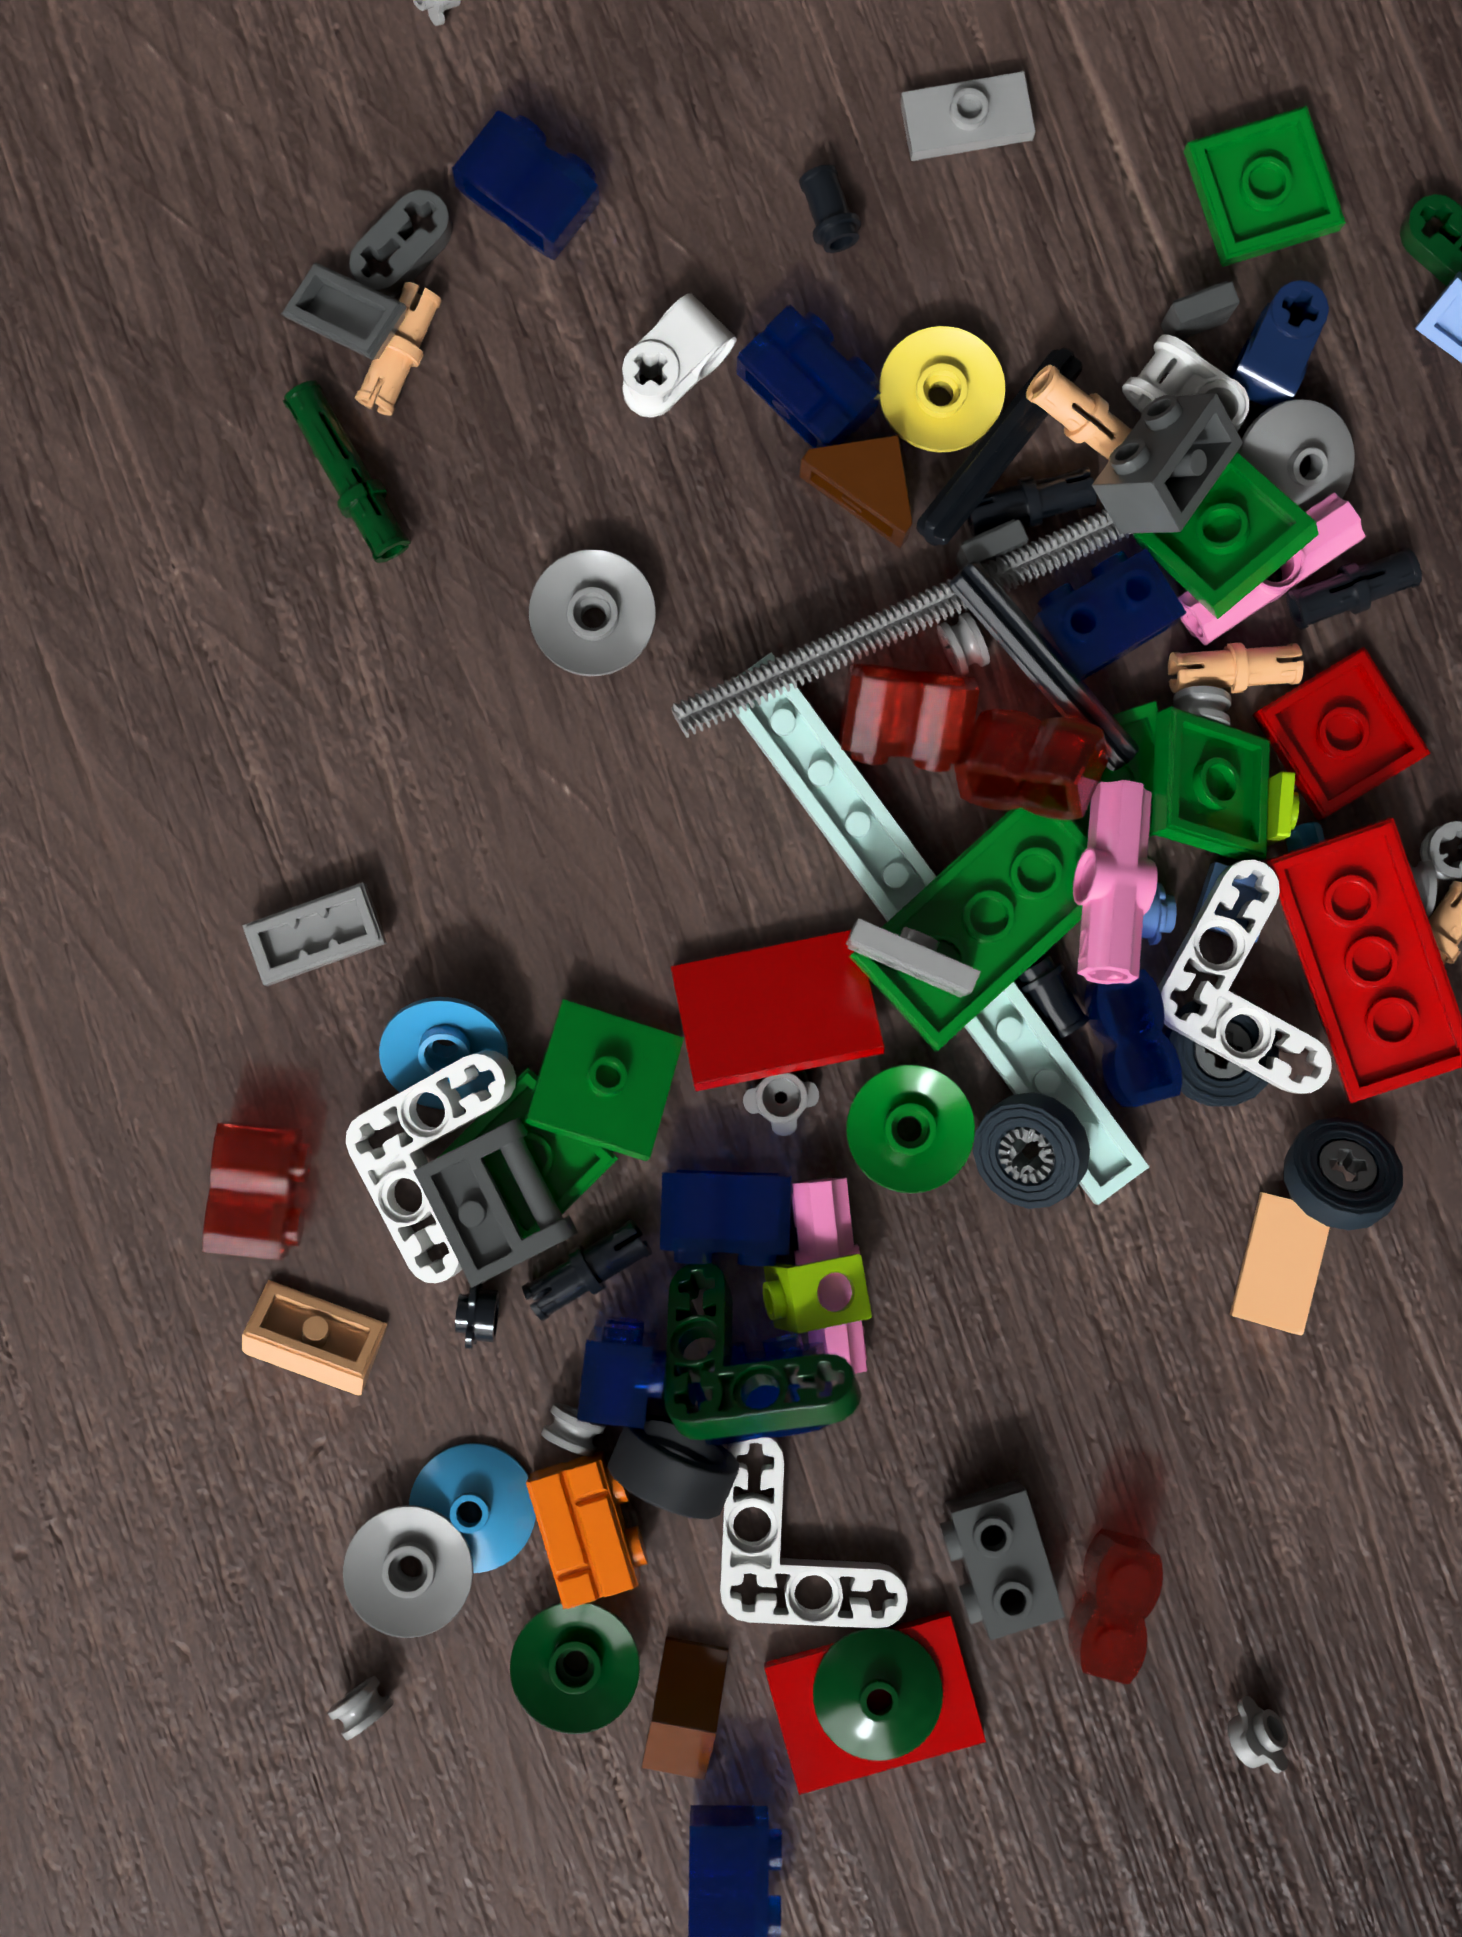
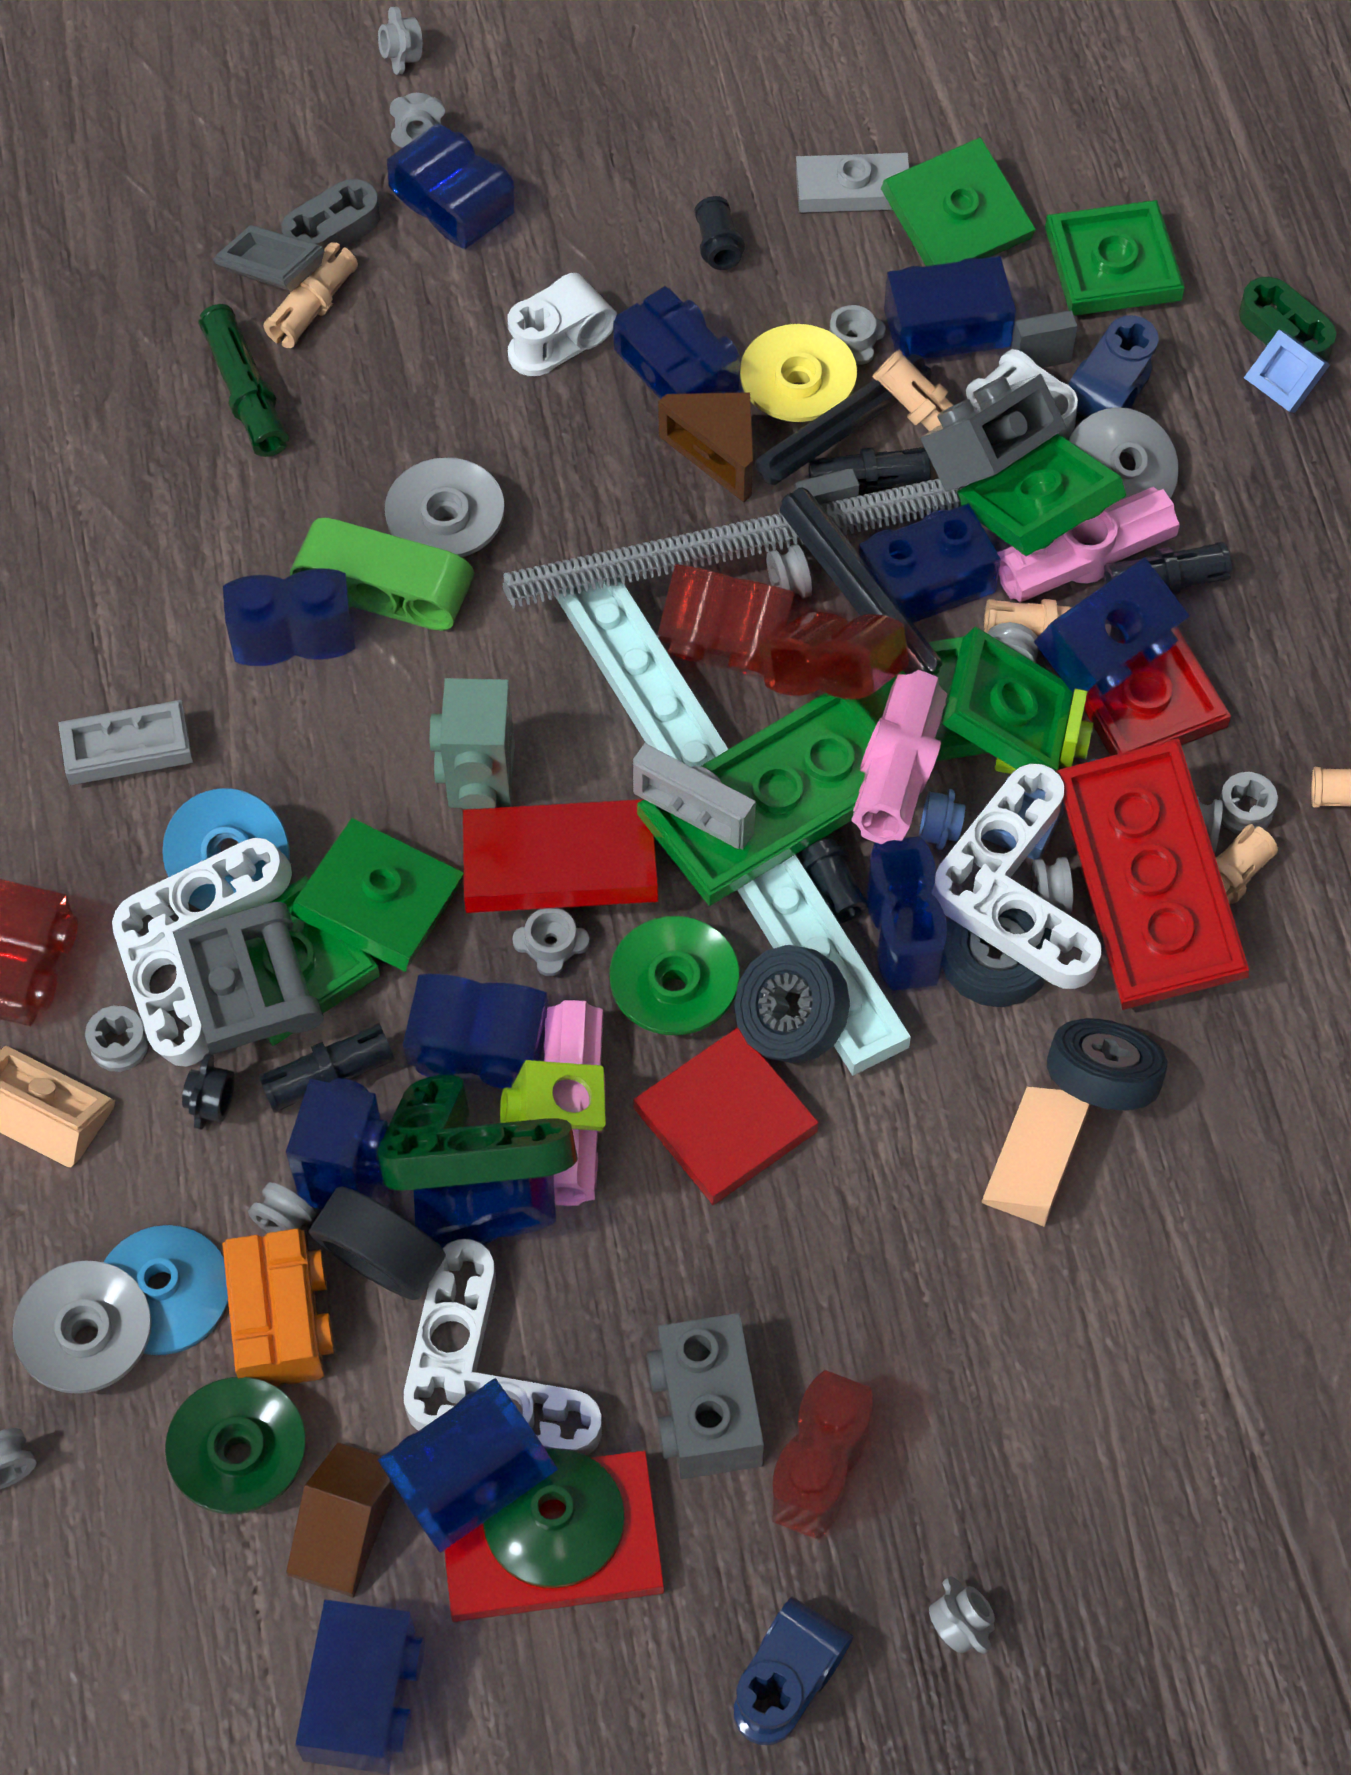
camera: 10 degrees right, 25 degrees down
(382, 1279) = (115, 1056): none -> light grey bush
(437, 775) = (288, 617): none -> clear blue brick
(472, 96) = (411, 108): none -> light grey plate
(540, 700) = (389, 572): none -> bright green beam
(675, 911) = (474, 743): none -> sand green brick
(795, 1679) = (467, 1464): none -> clear blue brick
(977, 1263) = (725, 1116): none -> red tile
(1001, 310) = (862, 324): none -> light grey plate
(1088, 143) = (958, 206): none -> green plate
(1096, 286) = (950, 308): none -> clear blue brick
(1111, 1797) = (791, 1663): none -> dark blue piece
(1269, 977) = (1053, 883): none -> light grey bush
(1277, 697) = (1133, 603): none -> clear blue brick

